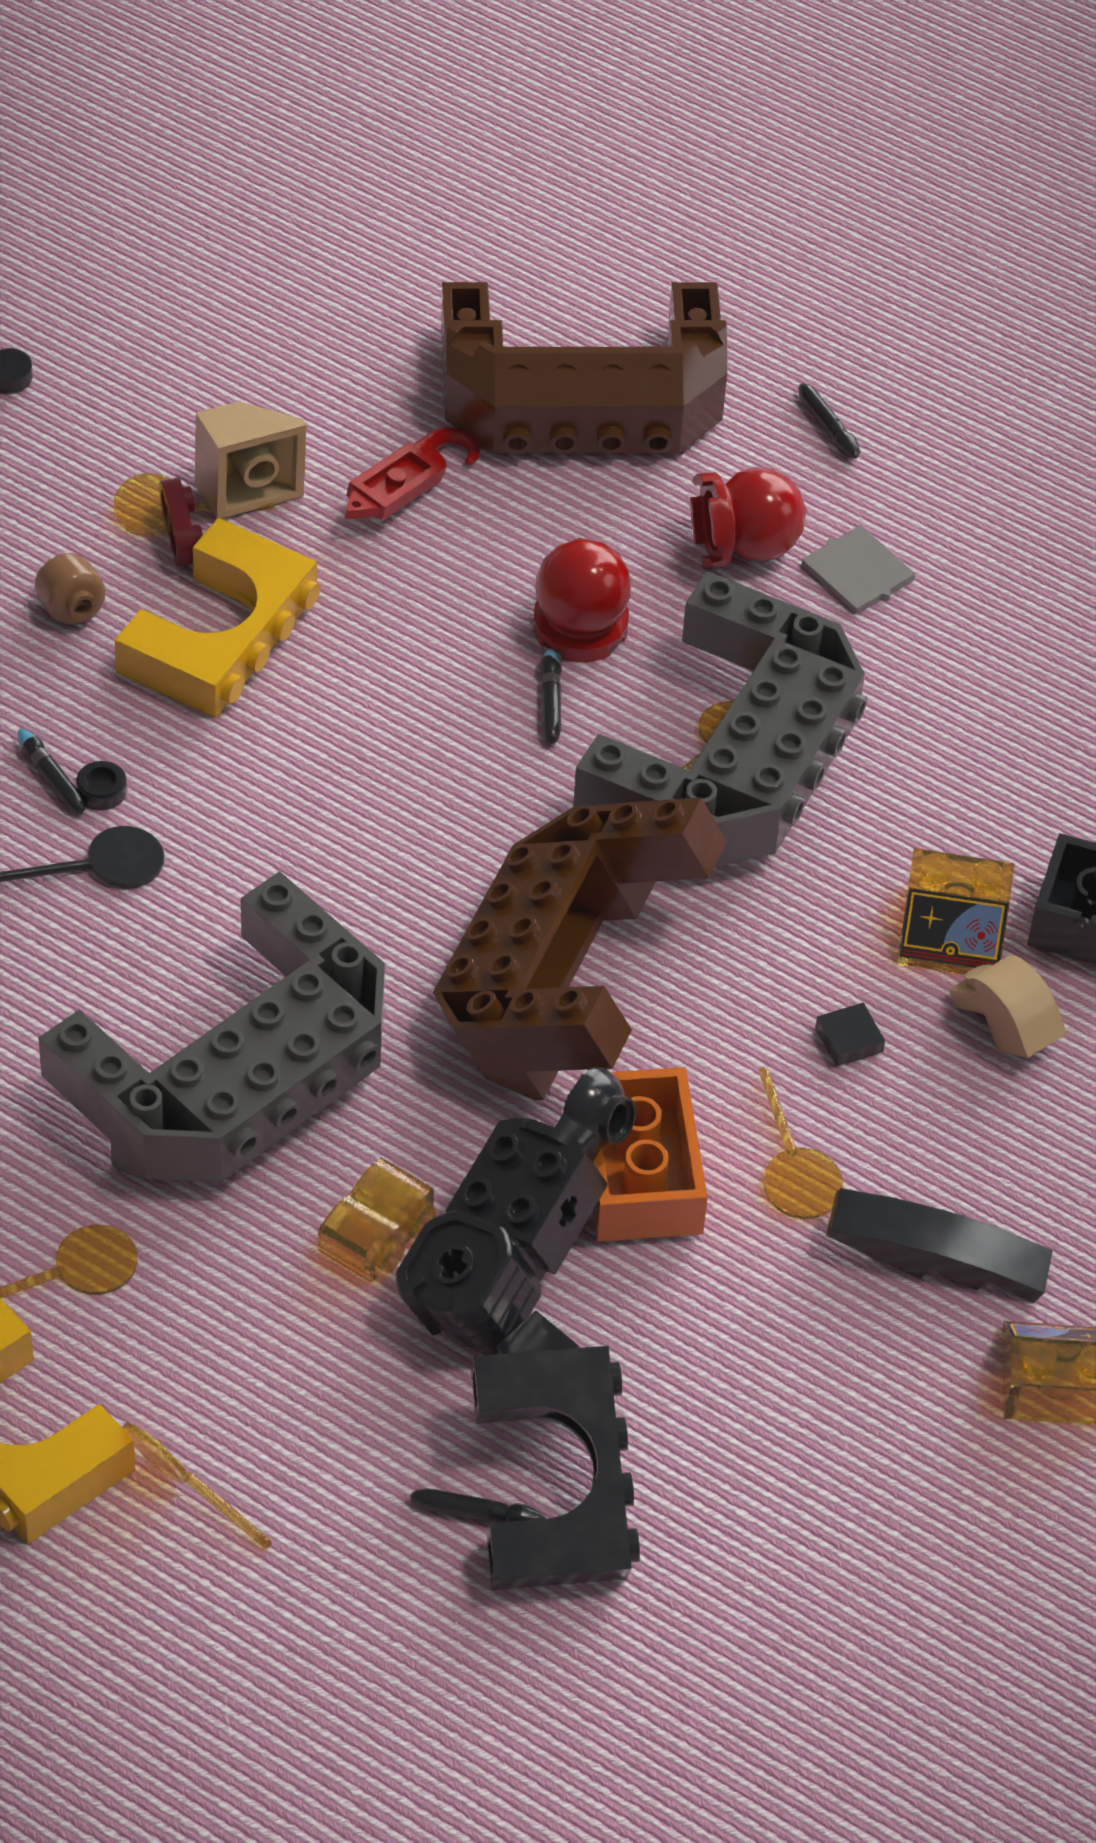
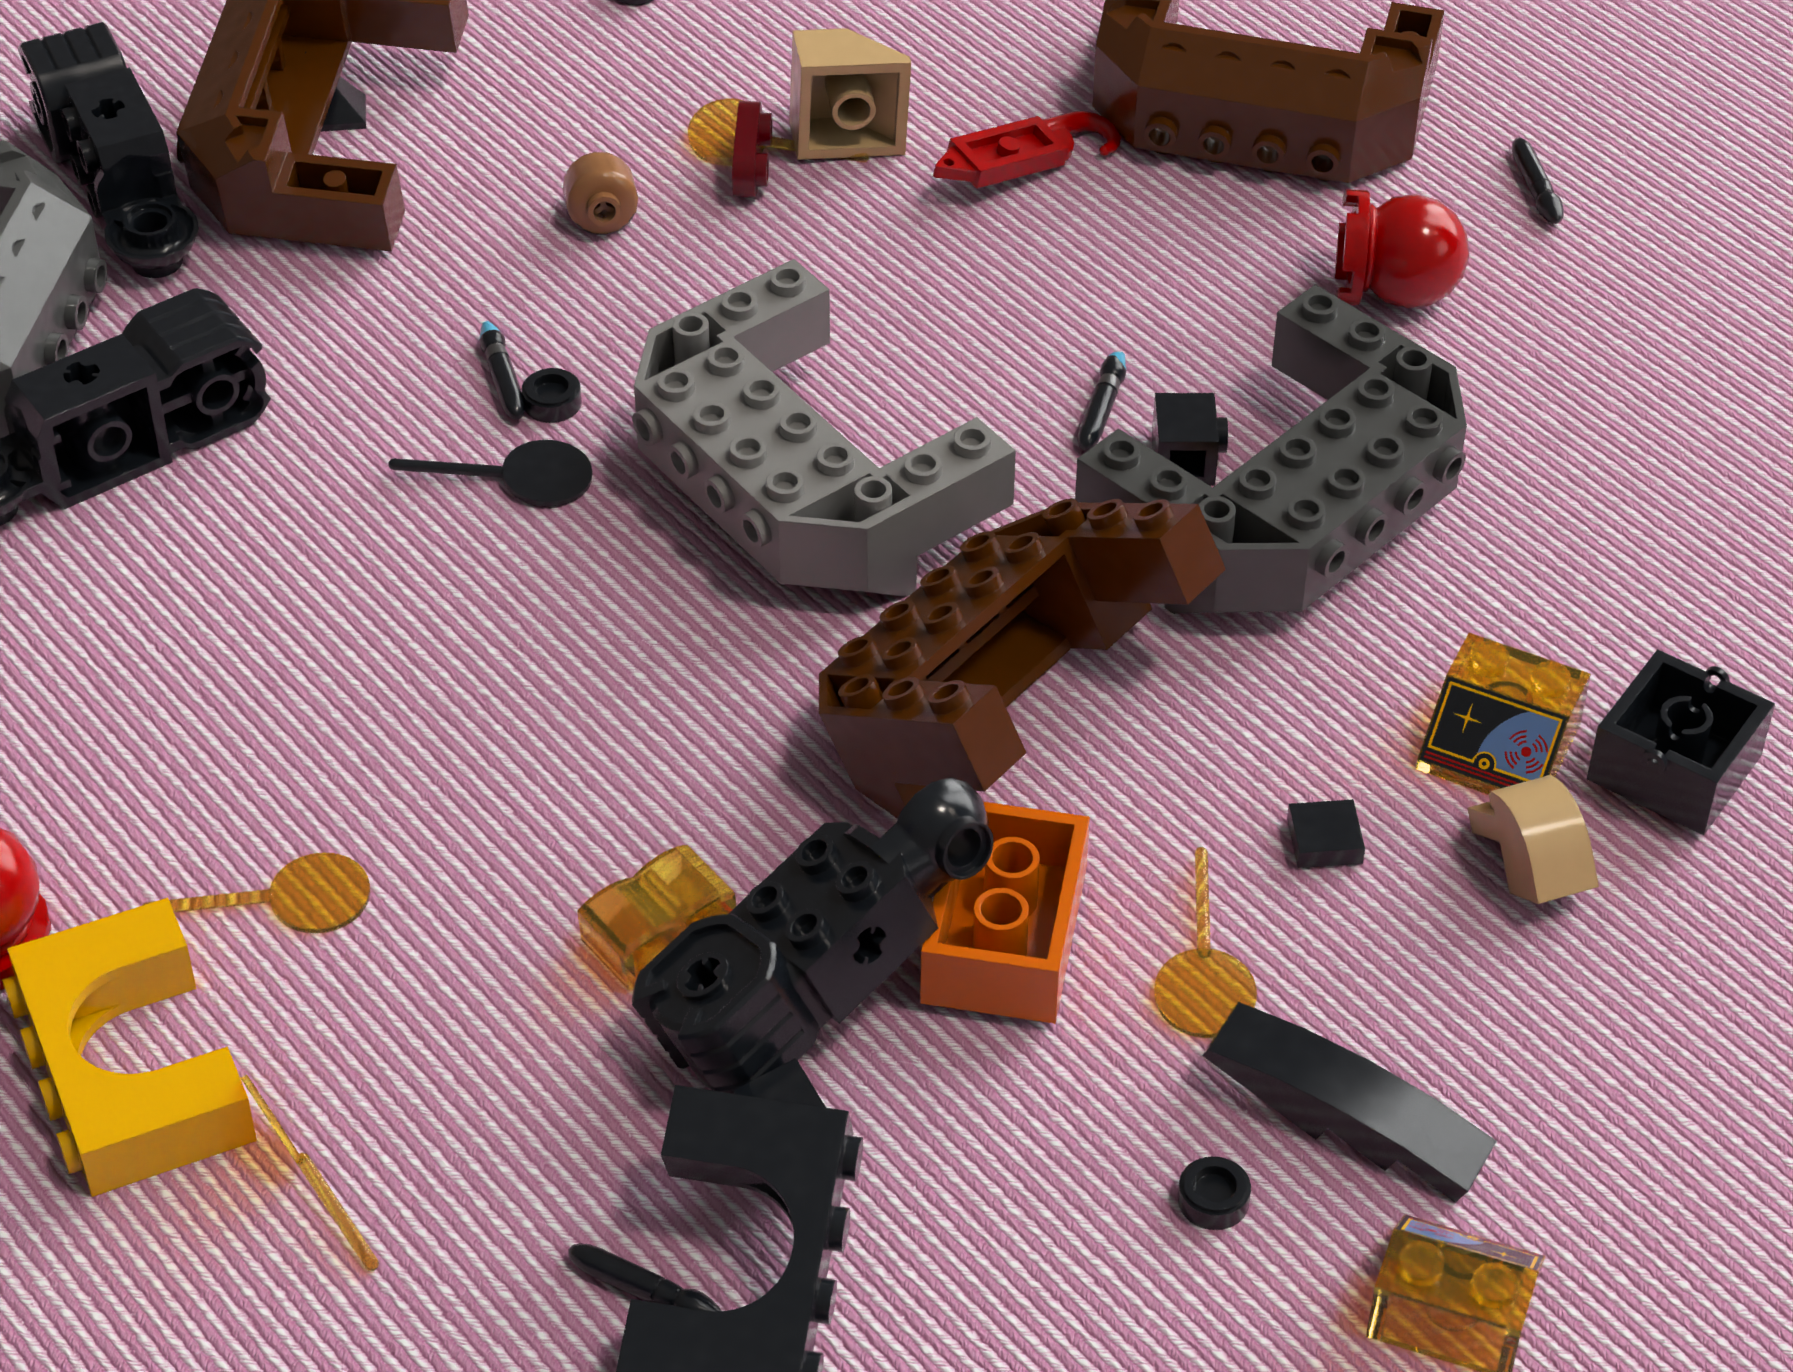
camera: 20 degrees right, 5 degrees down
(212, 667) = (817, 215): yellow arch -> none
(250, 1073) = (569, 713): dark grey wedge -> none
(326, 817) = (782, 472): none -> light grey wedge
(582, 600) = (1170, 301): red tile -> none
(634, 715) = (1190, 432): none -> black brick
(858, 569) = (1519, 337): light grey piece -> none
(863, 1337) = (1214, 1193): none -> black tile

